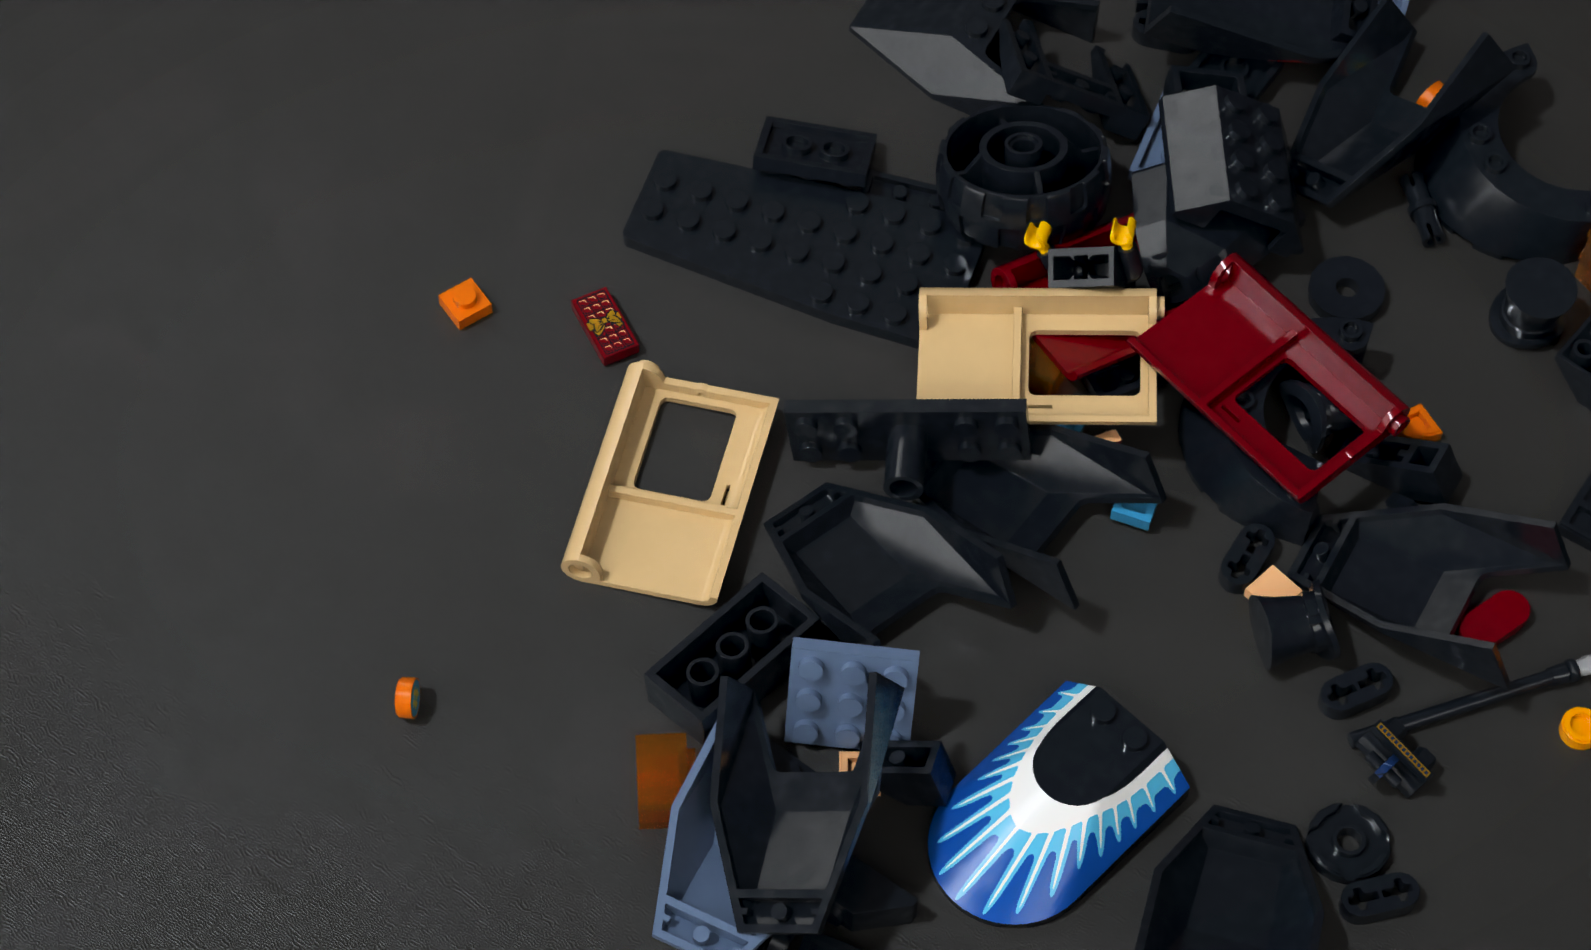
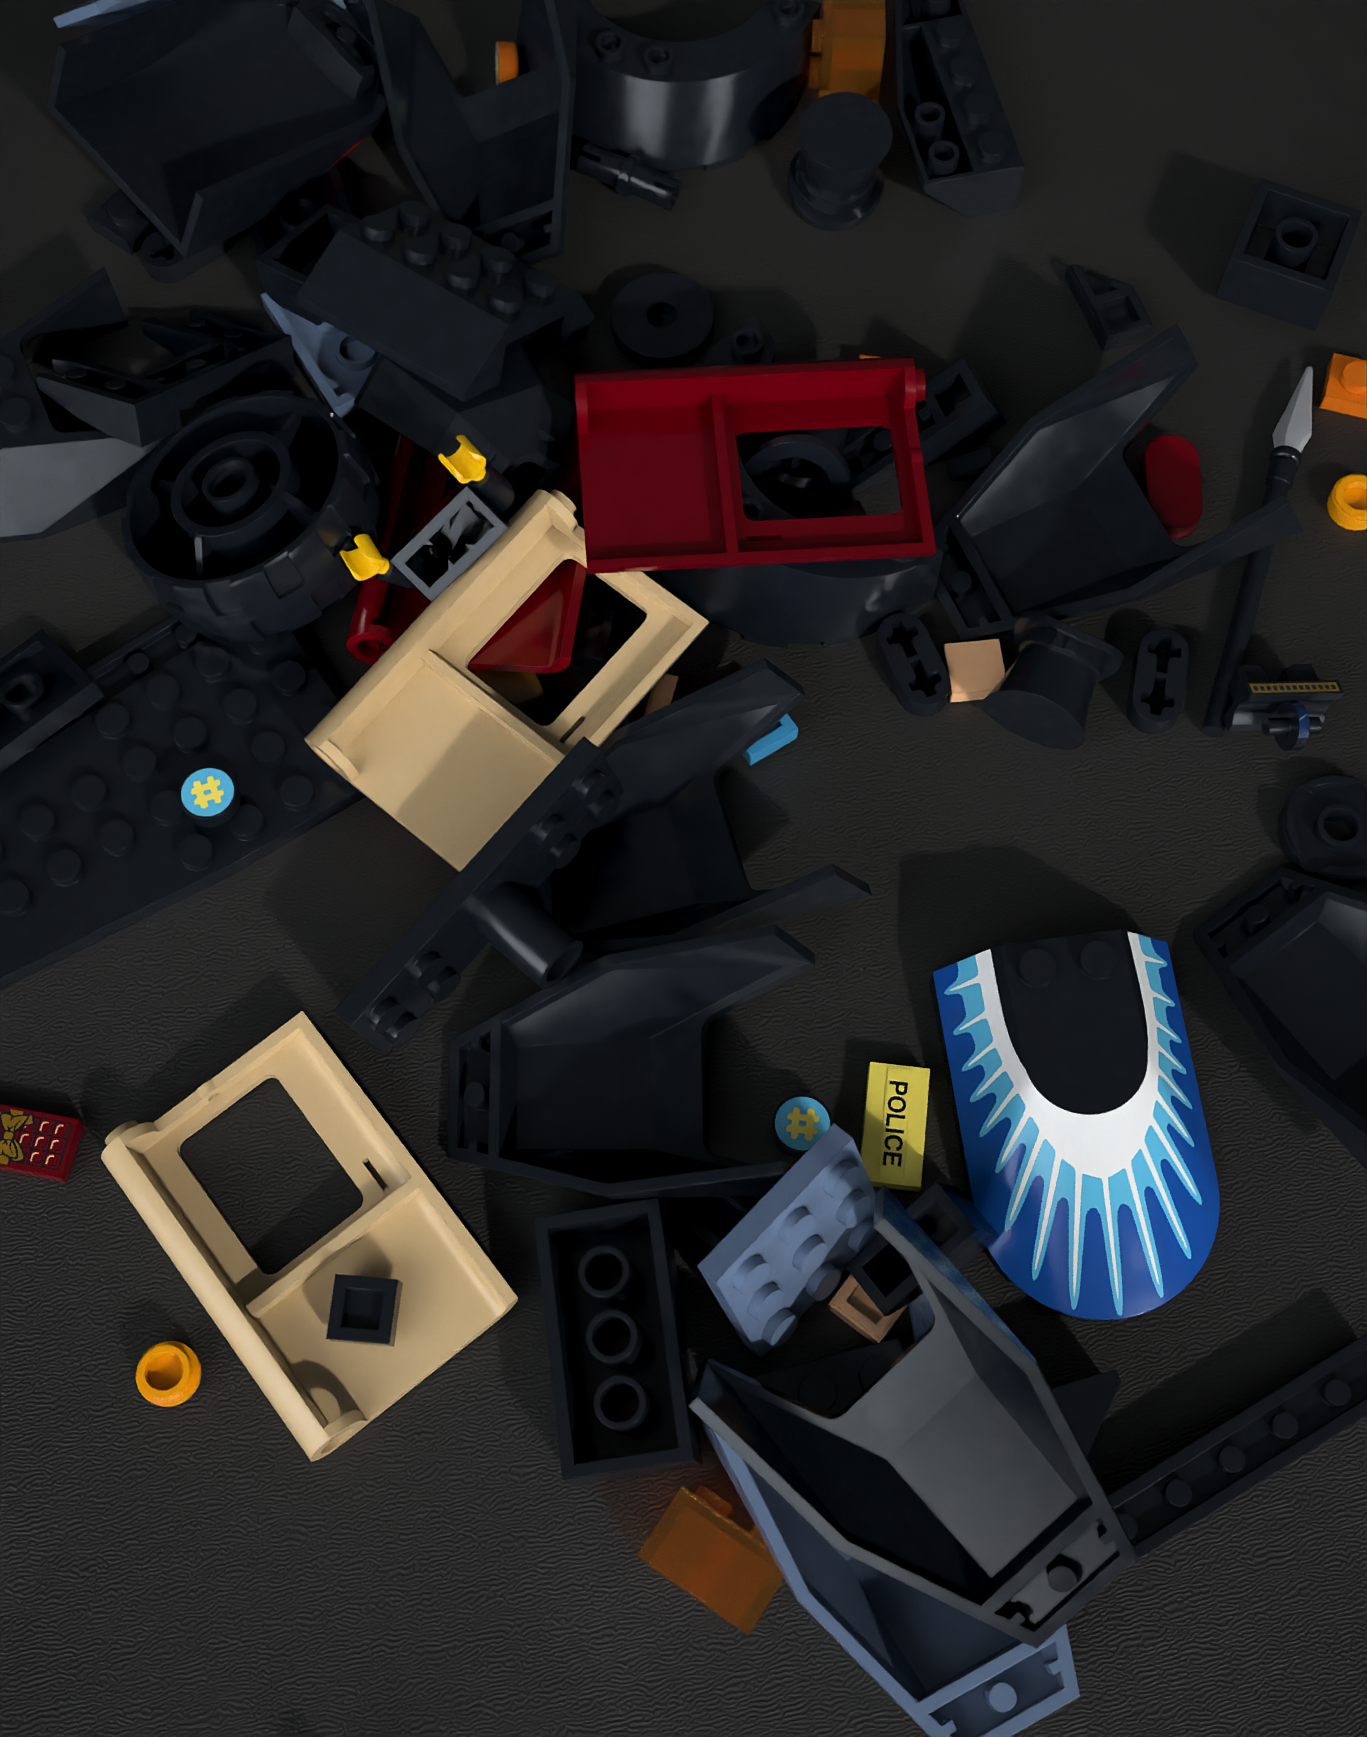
camera: 50 degrees left, 10 degrees up
(550, 476) = (168, 1373): none -> light orange plate
(652, 535) = (364, 1310): none -> black plate
(854, 273) = (209, 796): none -> tile
(930, 678) = (799, 1123): none -> tile
(966, 721) = (895, 1125): none -> light yellow tile

